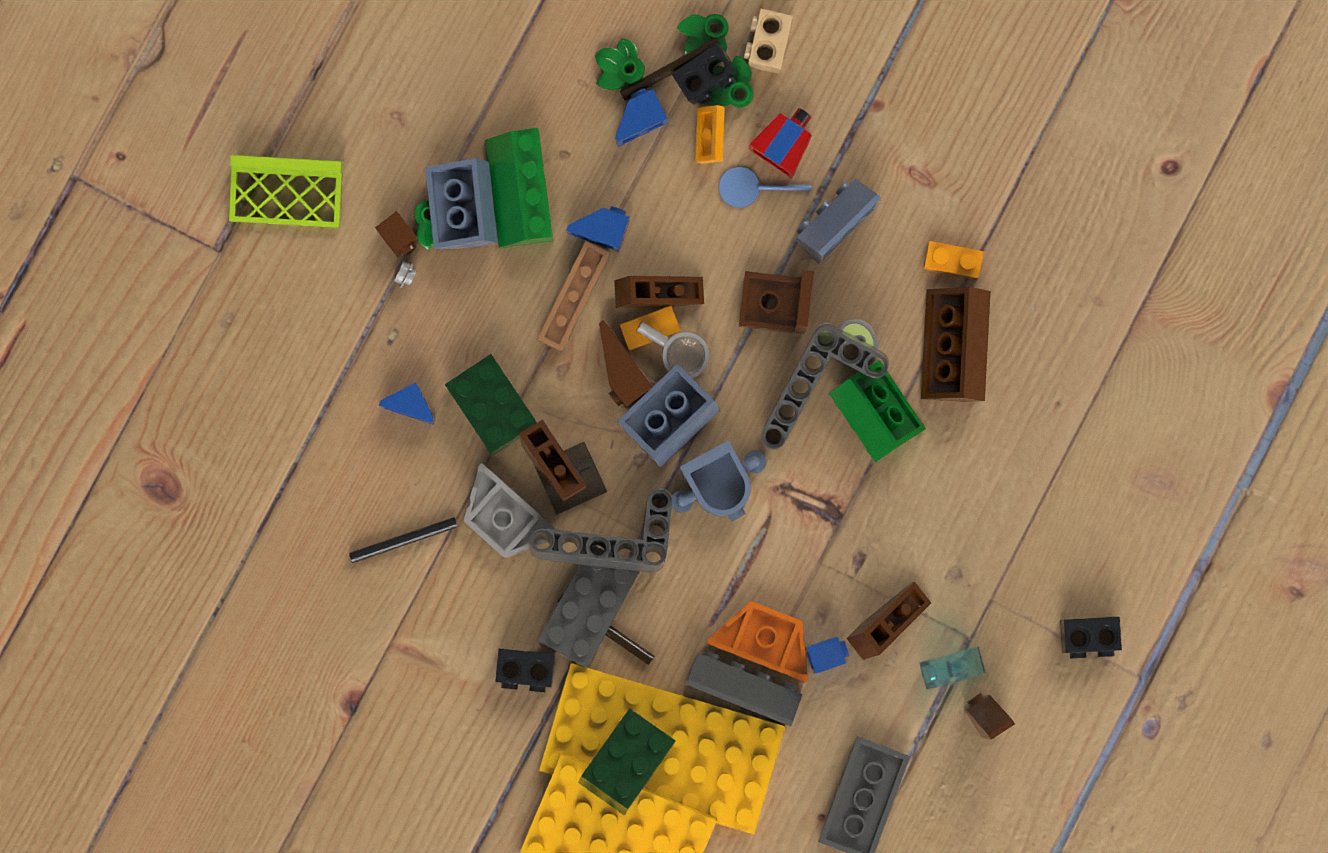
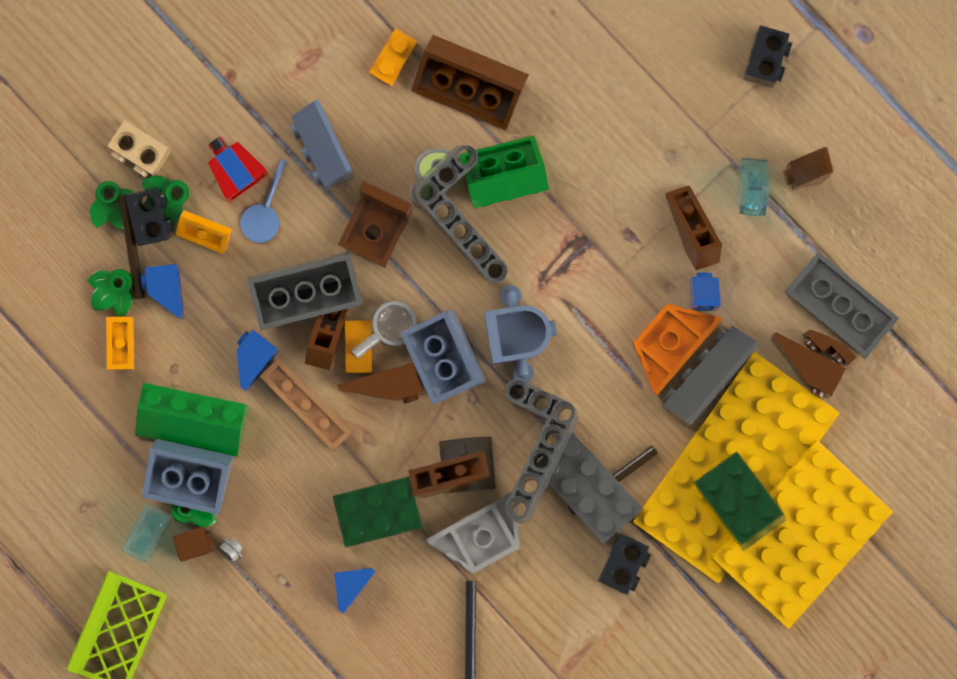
camera: 75 degrees left, 0 degrees up
(391, 185) = (147, 533): none -> clear light blue brick
(570, 92) = (120, 343): none -> light orange plate
(686, 254) = (304, 290): none -> dark grey slope
(788, 792) = (813, 369): none -> reddish brown slope
(817, 790) = (820, 342): none -> reddish brown slope

